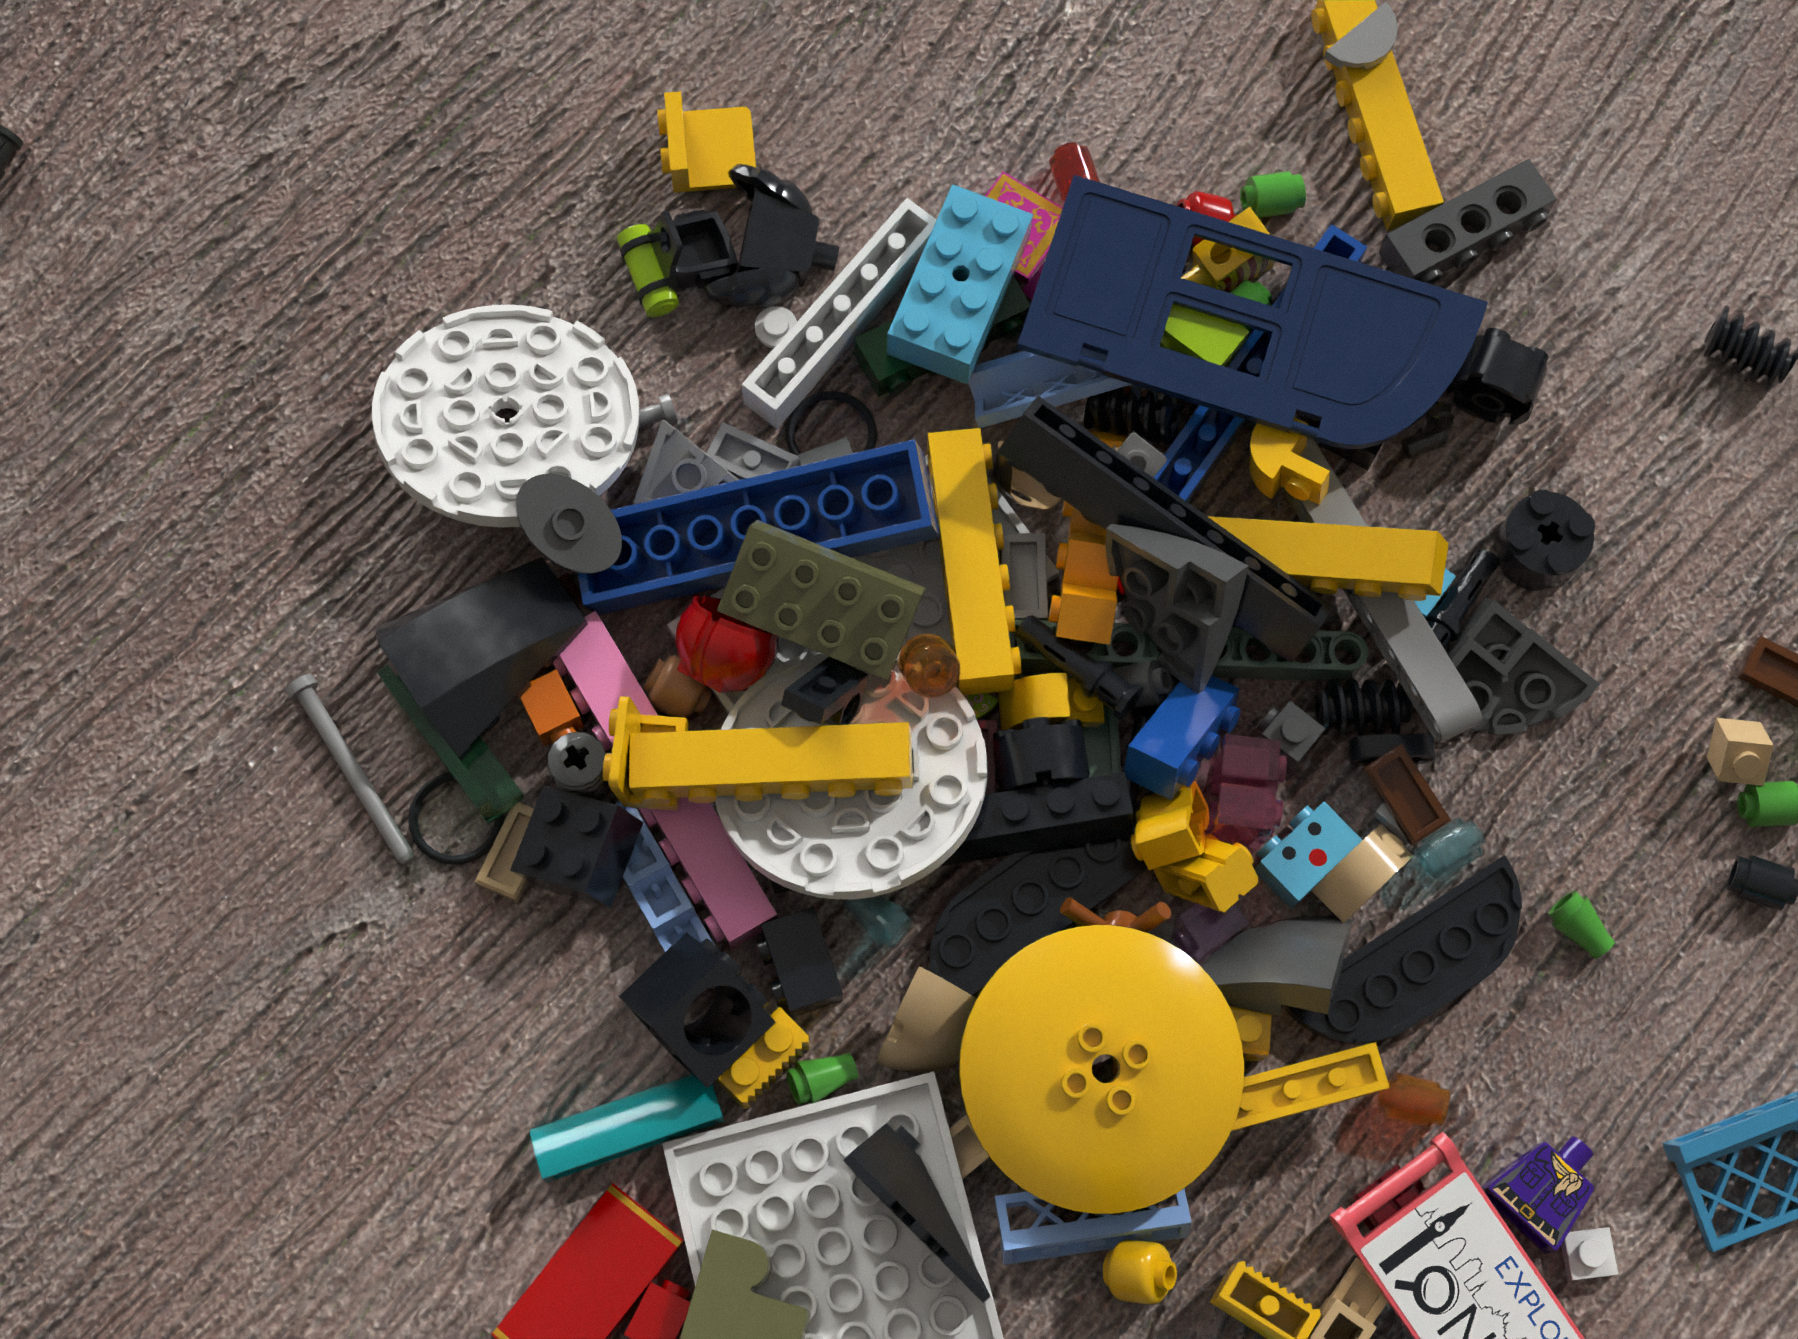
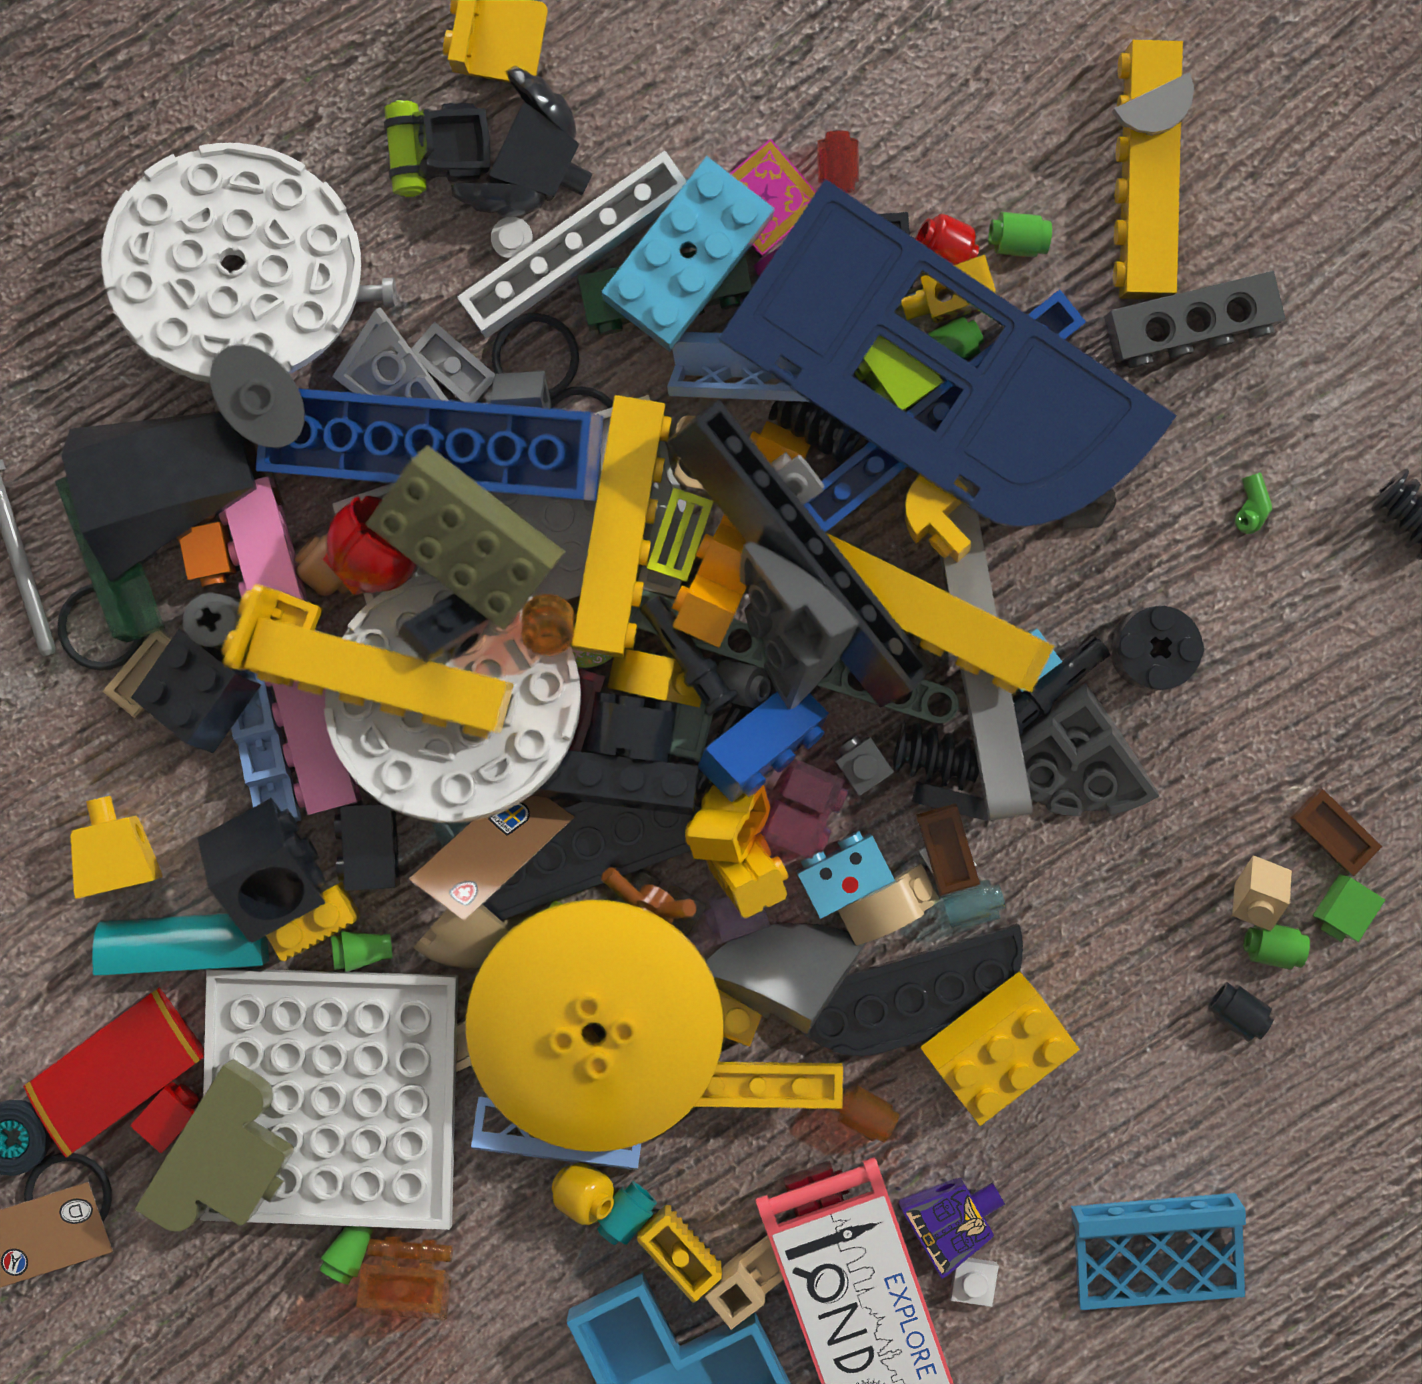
camera: 25 degrees right, 15 degrees up
(525, 1046) = (110, 852): none -> yellow torso
(903, 1184) = (395, 1070): black wedge -> none
(933, 923) = (489, 854): none -> medium nougat sticker
(1032, 590) = (691, 500): none -> neon yellow tile
(1194, 1284) = (629, 1214): none -> teal brick
(1499, 378) = (1169, 483): black brick -> none
(1530, 984) = (1000, 1048): none -> yellow brick
(1580, 923) = (1066, 1001): bright green cone -> none
(1592, 383) = (1256, 507): none -> bright green arm

